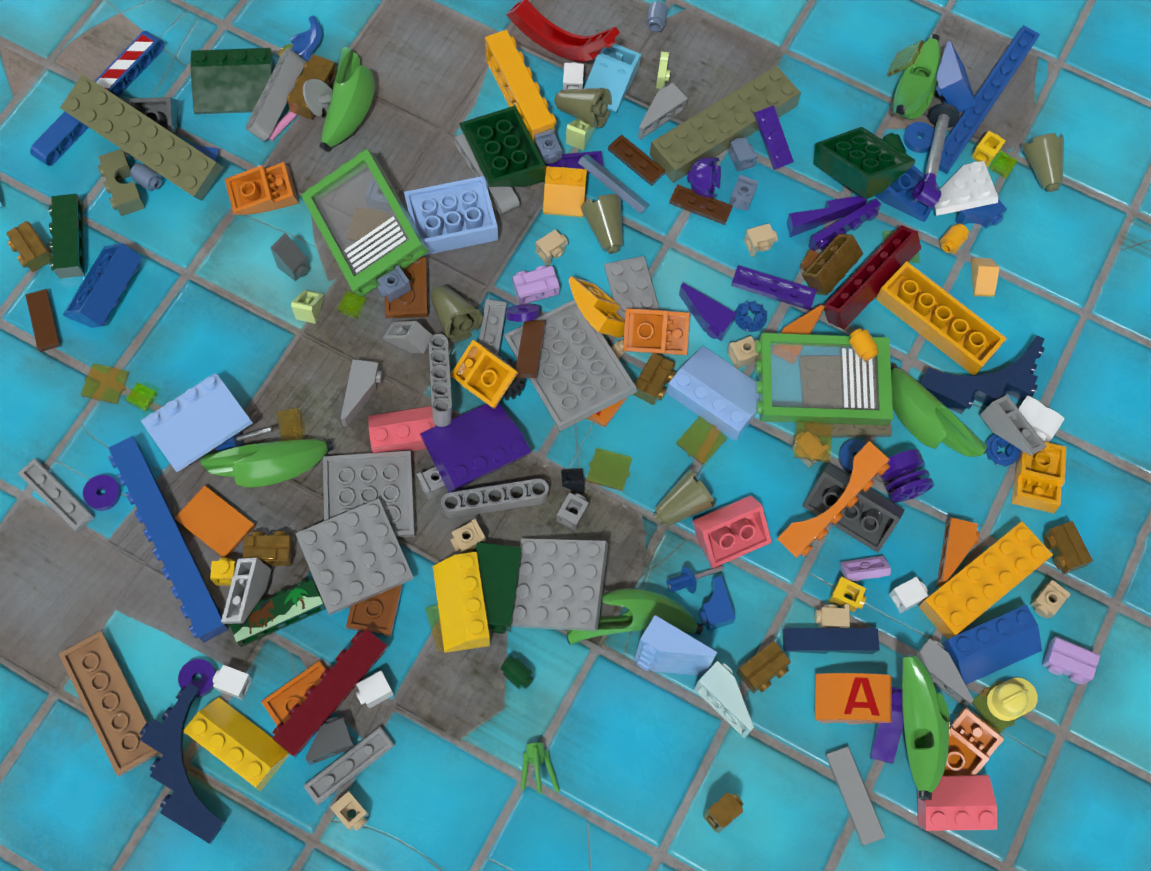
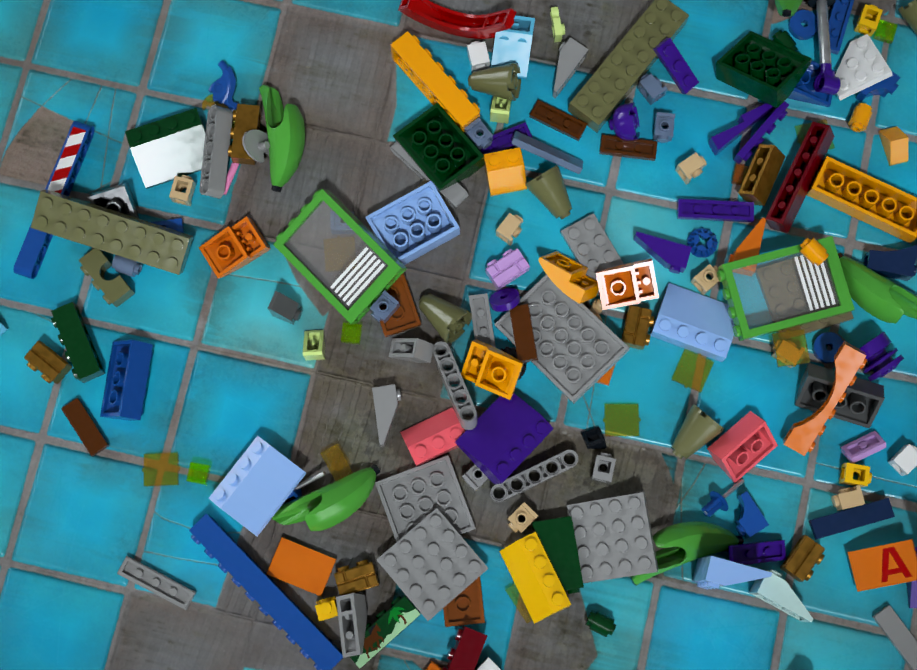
camera: 10 degrees left, 10 degrees up
(105, 501) = (187, 564): dark purple piece -> none
(229, 122) = (178, 185): none -> tan brick
(725, 646) = (758, 552): none -> dark purple plate

